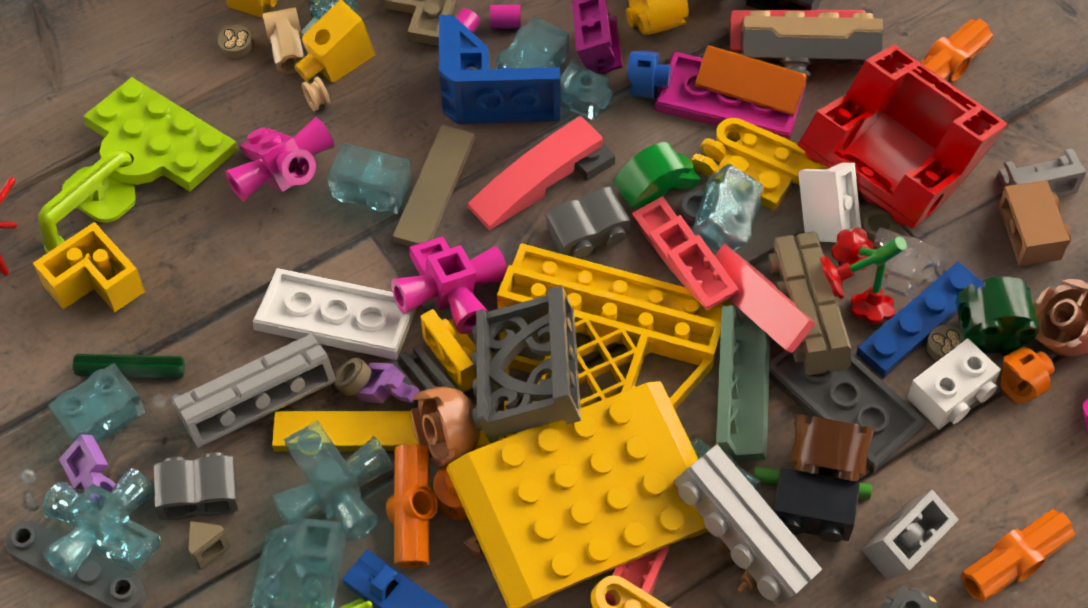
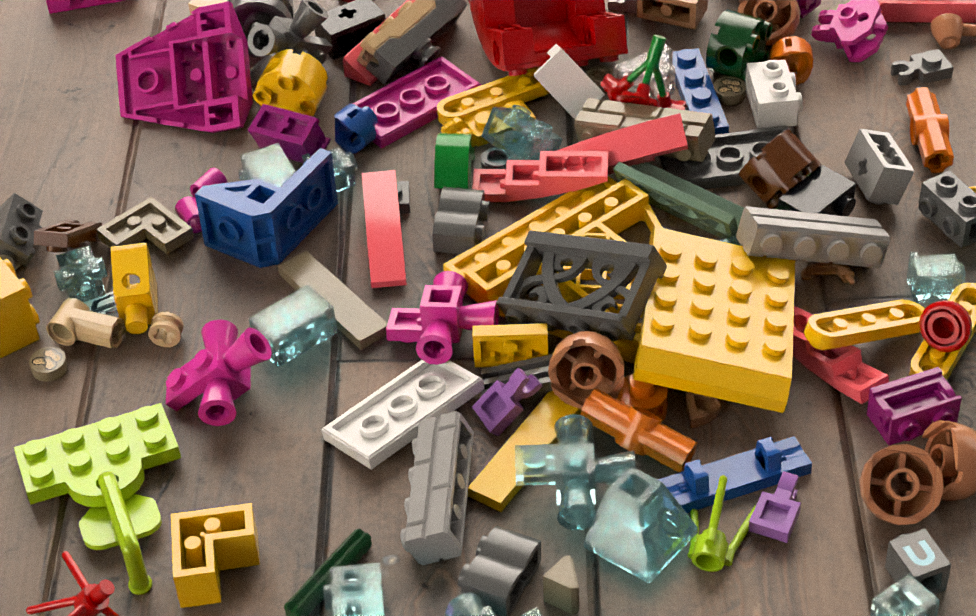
camera: 55 degrees left, 15 degrees down
(352, 376) = (481, 419): dark tan tile -> none
(751, 80) = (415, 76): orange slope -> none

